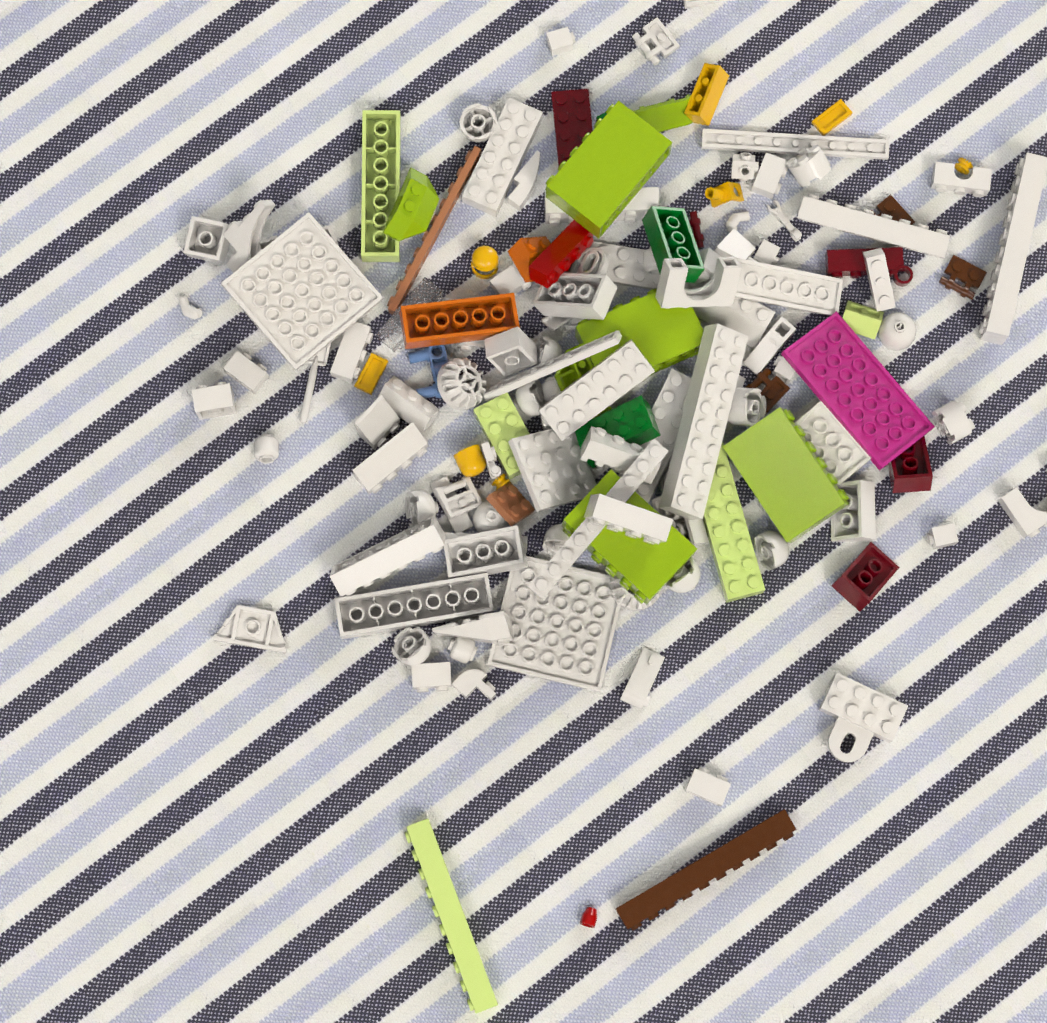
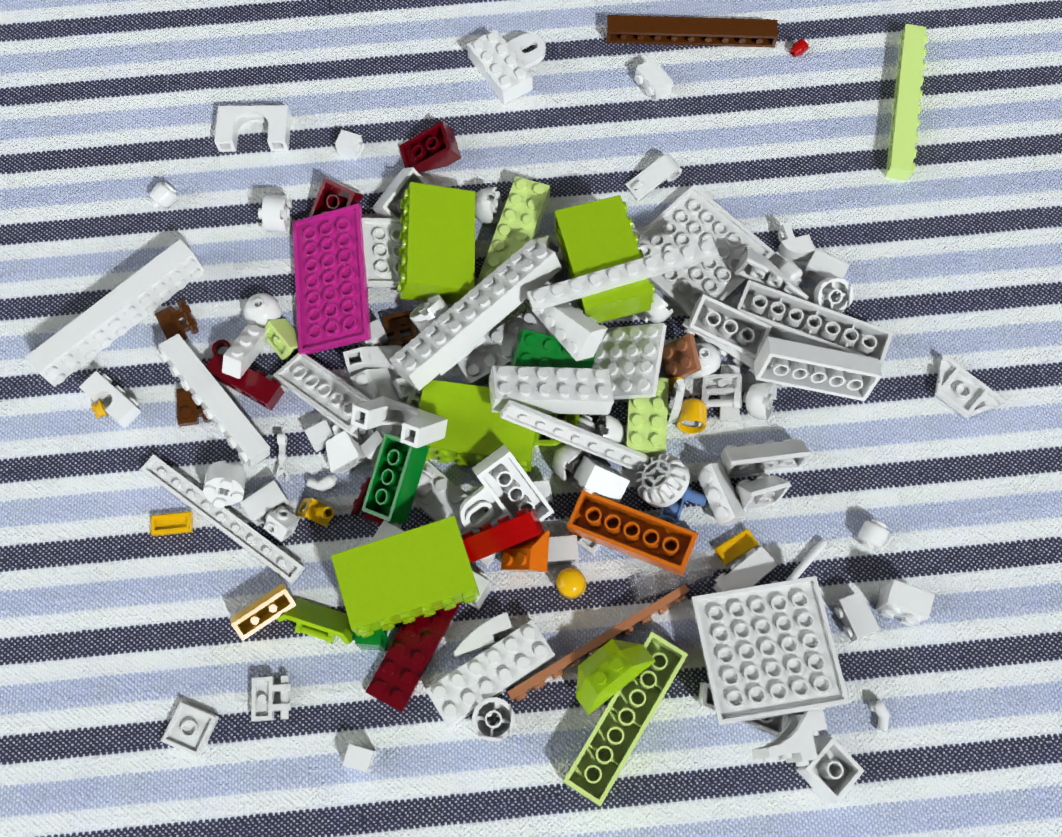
camera: 145 degrees left, 10 degrees down
(628, 518) = (602, 246): white brick -> none

